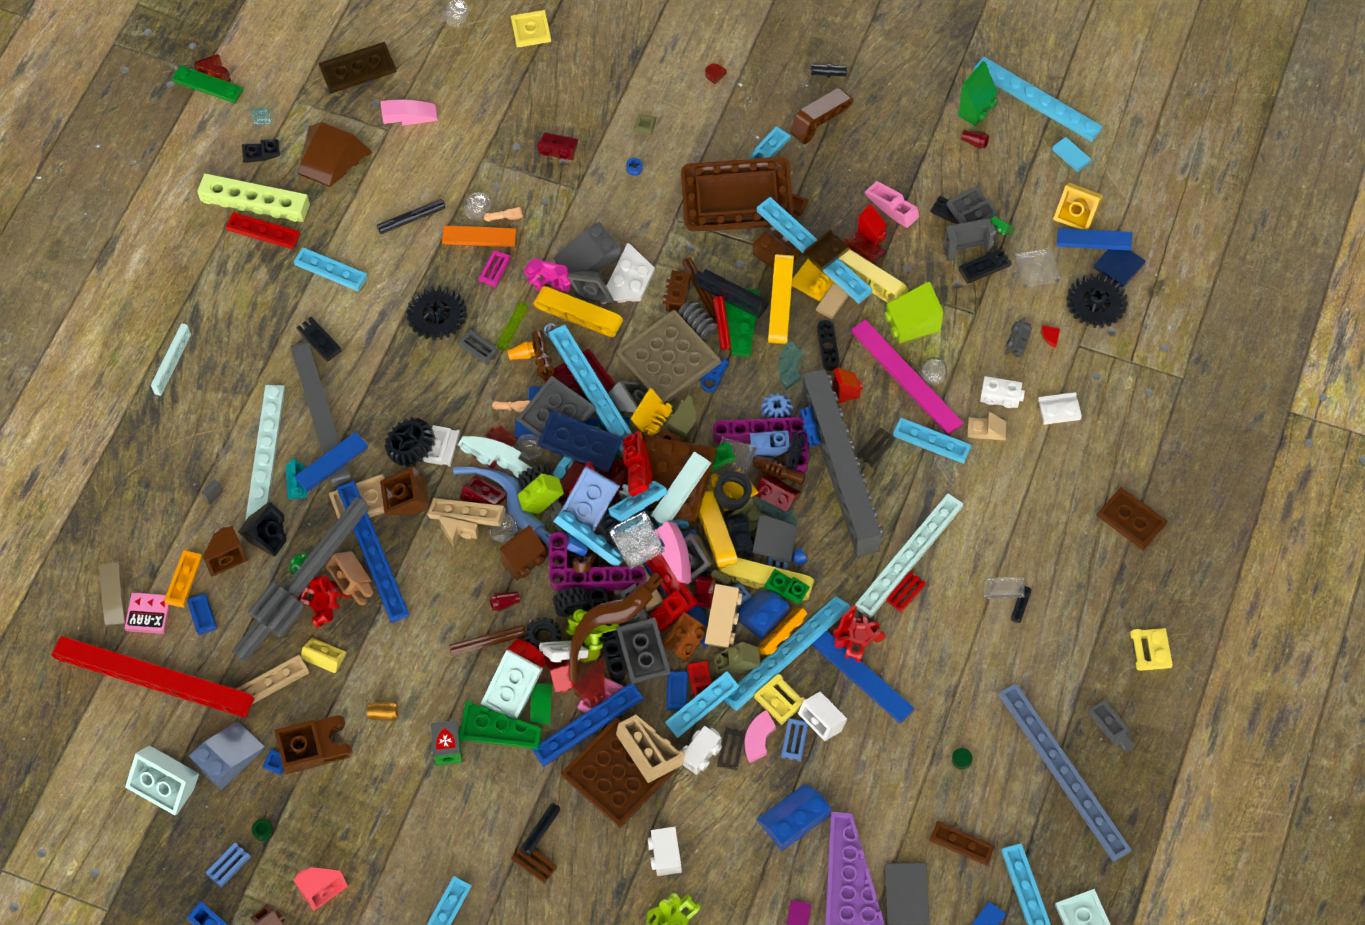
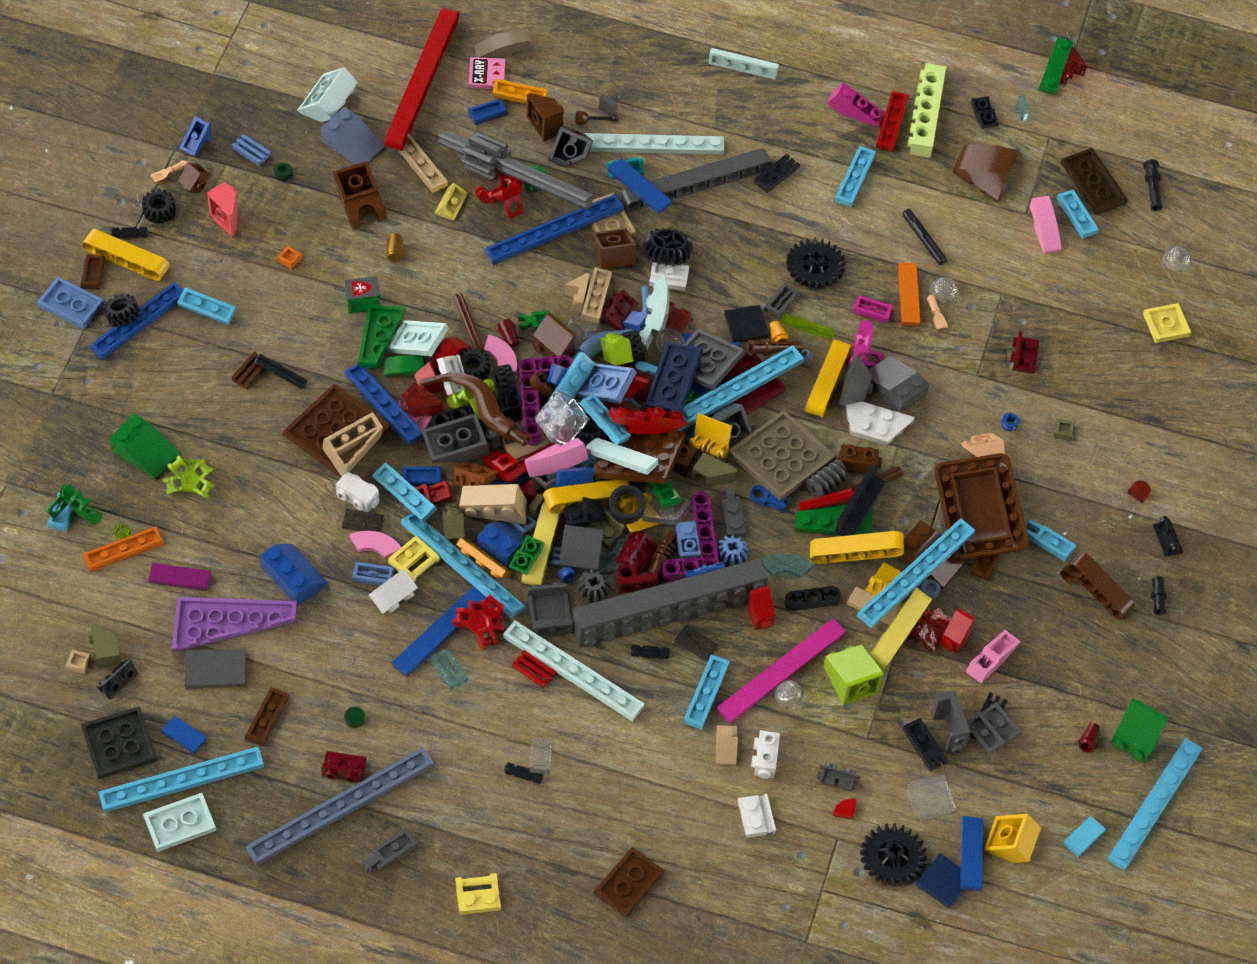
camera: 80 degrees right, 5 degrees down
(224, 519) = (582, 118): none -> hinge
(238, 263) = (852, 104): none -> dark pink slope
(350, 576) = (526, 211): medium nougat hinge -> none
(357, 19) = (1153, 172): none -> black pin
(383, 823) = (289, 257): none -> orange tile
(396, 85) = (1077, 214): none -> medium azure plate
(490, 571) = (533, 321): none -> green plate
(499, 477) = (635, 320): none -> tile
(505, 380) = (746, 324): none -> black tile
(518, 406) = (717, 326): light nougat piece -> none
(529, 608) = (501, 352): none -> bright pink tile
(665, 185) = (984, 445): none -> light nougat slope
(666, 851) = (257, 467): white brick -> none
(700, 537) = (574, 476): none -> blue tile
(731, 407) = (733, 514): none -> dark grey hinge
(767, 57) = (1167, 537): none -> black hinge
(794, 451) = (675, 558): black pin -> none
(809, 495) = (634, 582): none -> dark red plate
(819, 538) = (593, 586): none -> dark grey gear
(826, 250) = (913, 579): dark brown plate -> none
(841, 574) = (549, 610): none -> dark grey panel
(886, 488) = (650, 651): none -> black axle
(891, 677) = (456, 681): none -> clear light blue tile
(1002, 227) = (973, 756): green plate -> none
(1018, 769) = (343, 766): none -> dark red bracket

